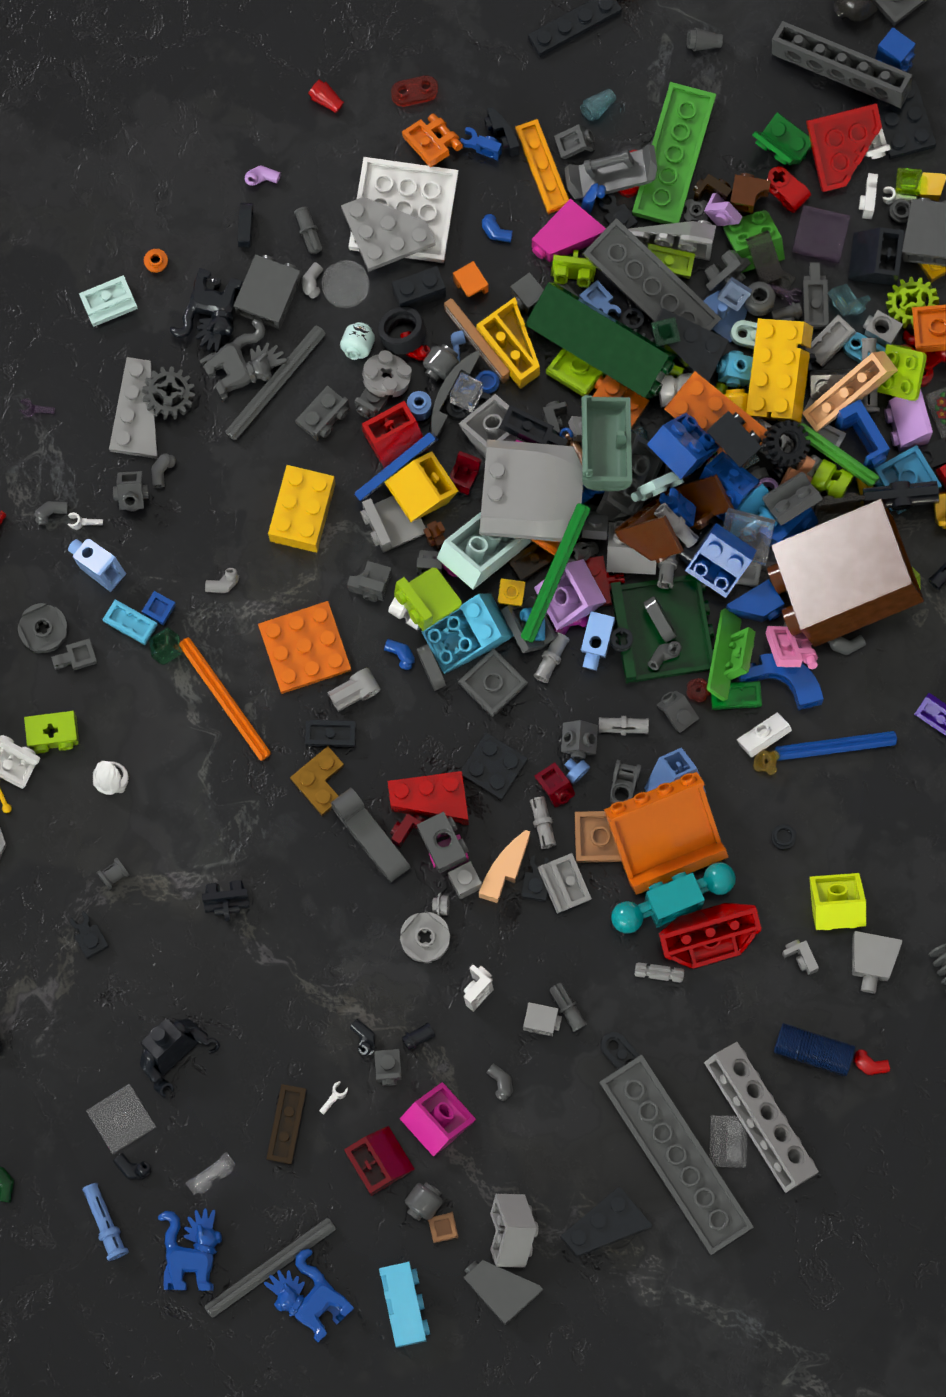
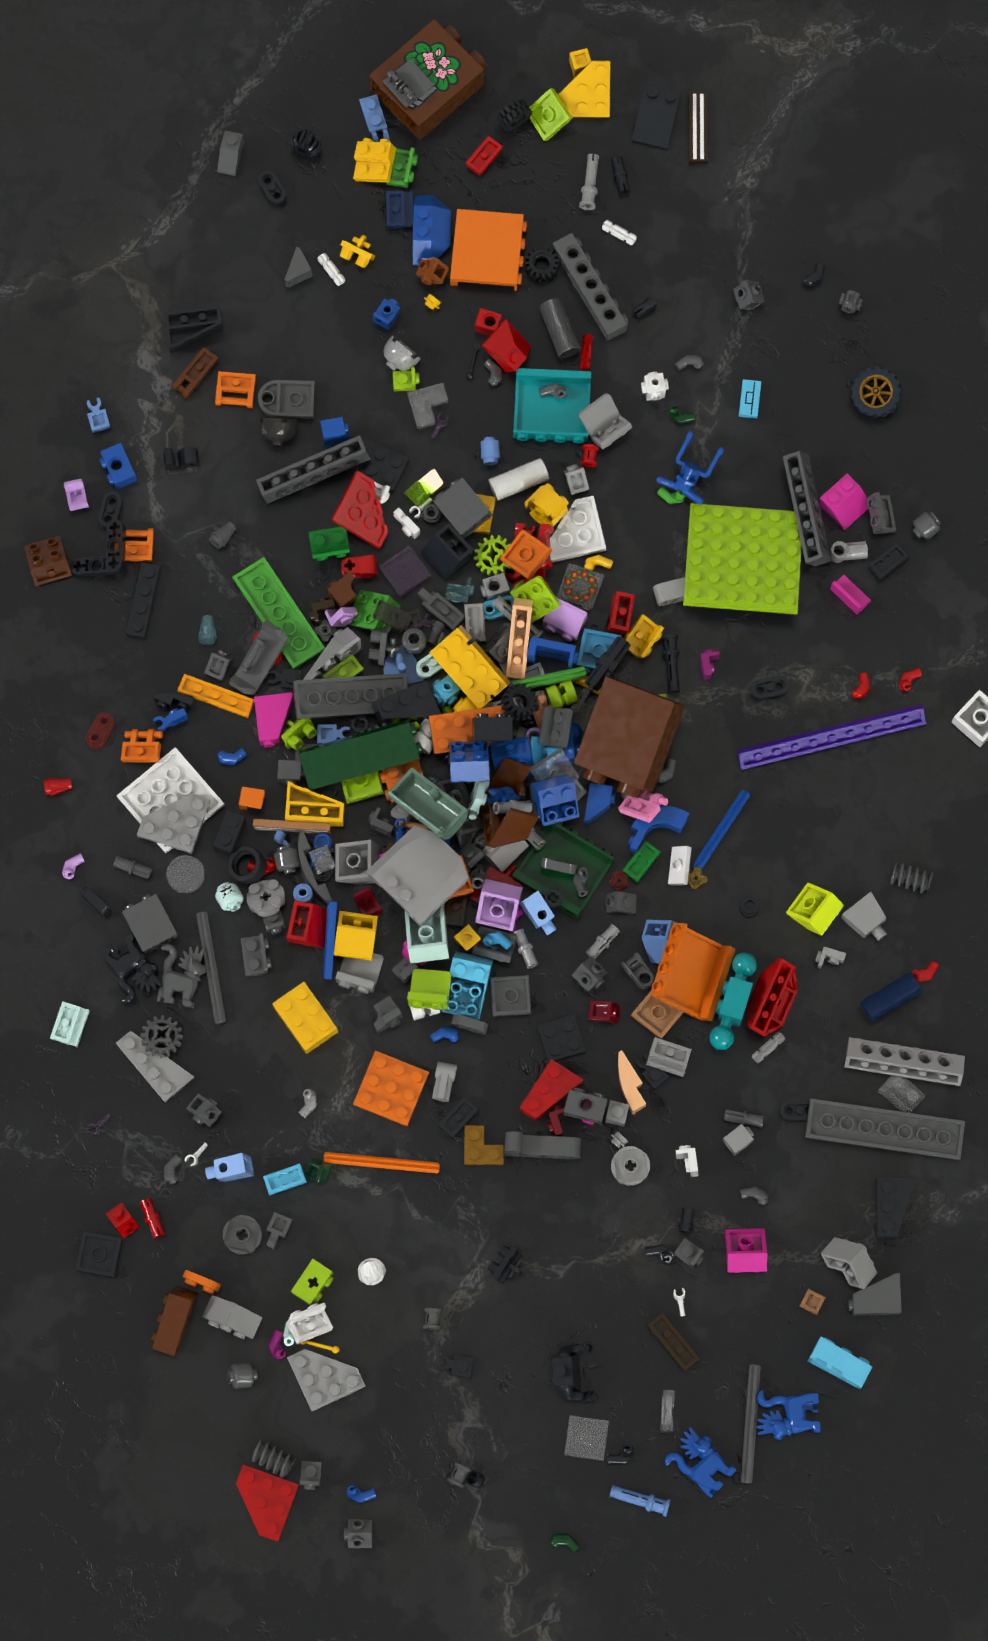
camera: 50 degrees left, 0 degrees up
(155, 267) = (69, 980): orange plate -> none
(158, 468) = (202, 1080): dark grey arm -> none
(158, 608) = (291, 1154): blue plate -> none
(309, 280) = (165, 894): light grey arm -> none
(379, 1160) = (742, 1305): dark red slope -> none
(423, 1201) = (788, 1299): dark grey head -> none
(434, 534) = (391, 952): reddish brown plate -> none
(529, 428) = (379, 841): black hinge -> none
(543, 822) = (621, 1038): light grey pin -> none
(555, 572) = (482, 901): green axle -> none
(577, 771) = (607, 992): medium blue tile -> none
(589, 199) = (262, 682): blue arm -> none
(665, 331) = (391, 711): clear green slope -> none
(730, 654) = (617, 842): bright green bracket -> none
(734, 294) = (400, 652): sand blue plate -> none

